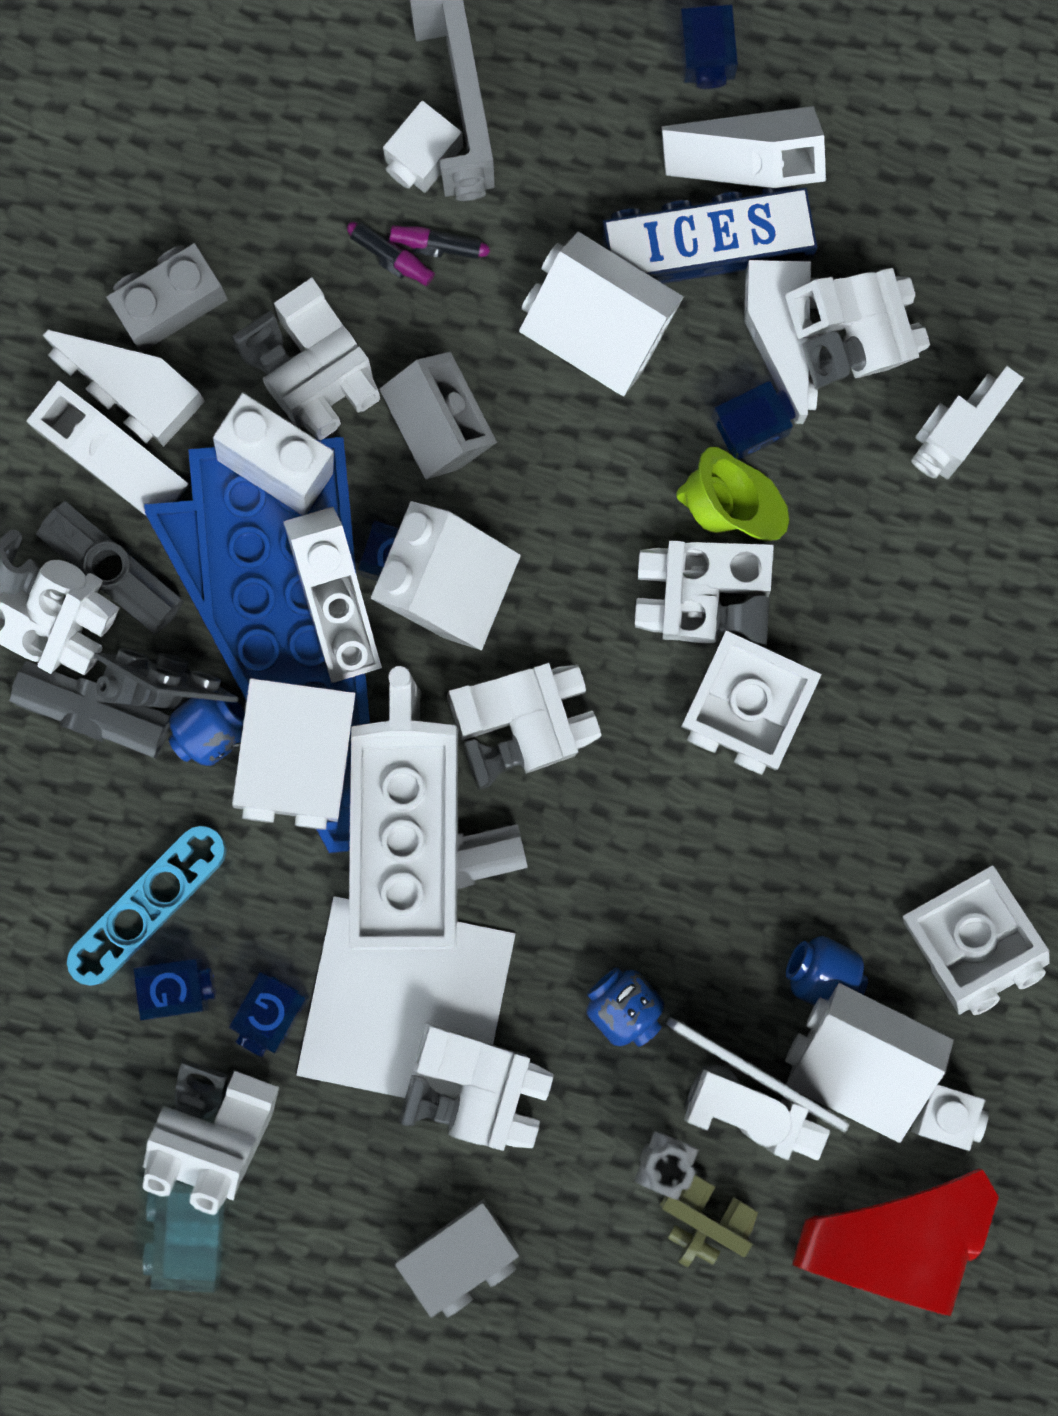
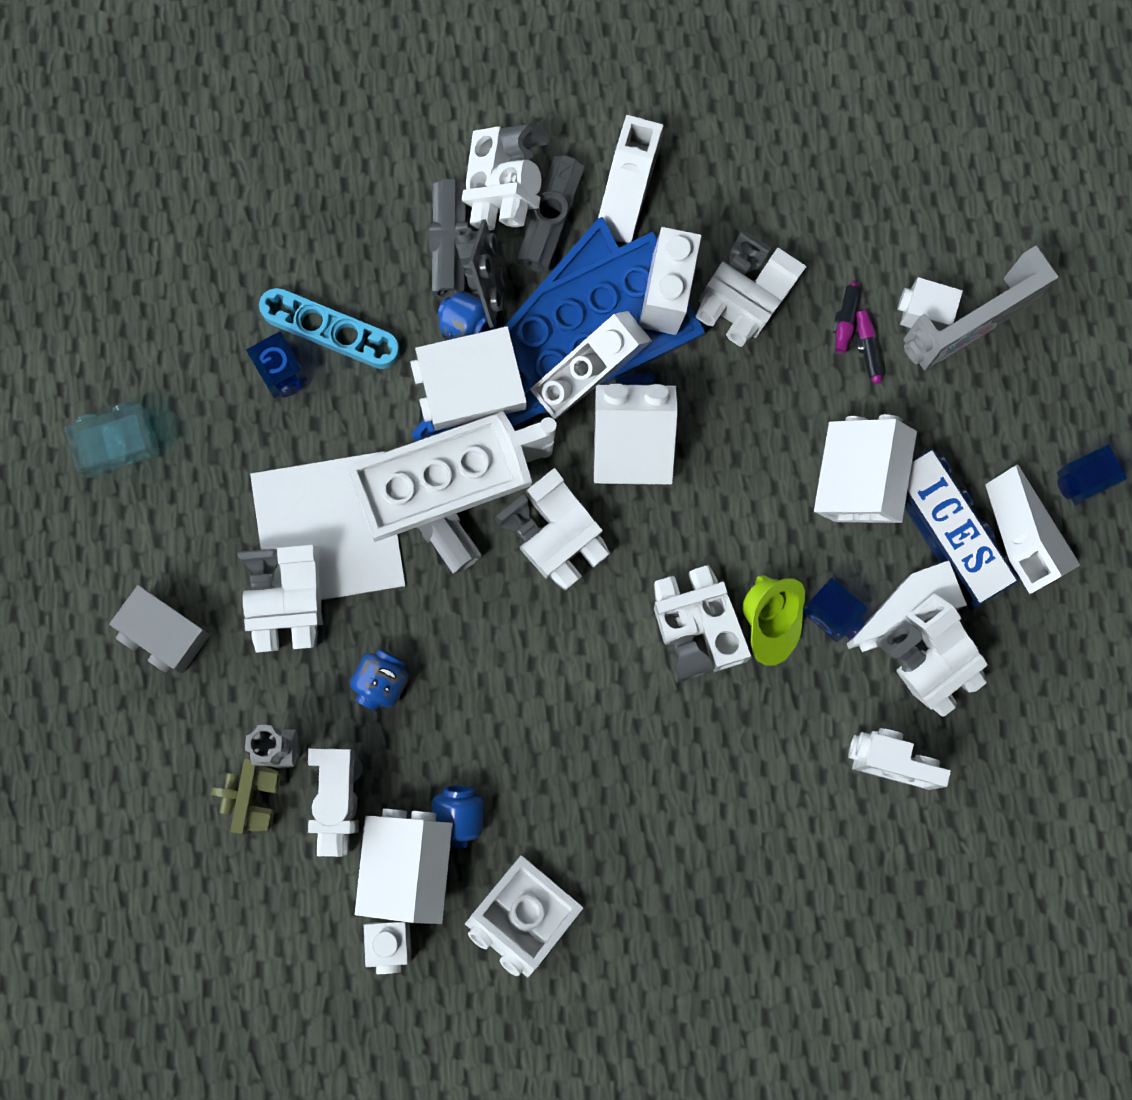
camera: 65 degrees right, 5 degrees down
(139, 383) = (684, 184): white slope -> none
(166, 296) = (752, 178): light grey brick -> none
(203, 1152) = (169, 426): white hips -> none
(267, 1015) = (283, 436): clear blue brick -> none
(435, 419) = (746, 389): light grey brick -> none
(750, 703) = (630, 684): white plate -> none
(757, 1074) = (361, 783): white piece -> none
(906, 1246) = (279, 948): red panel -> none

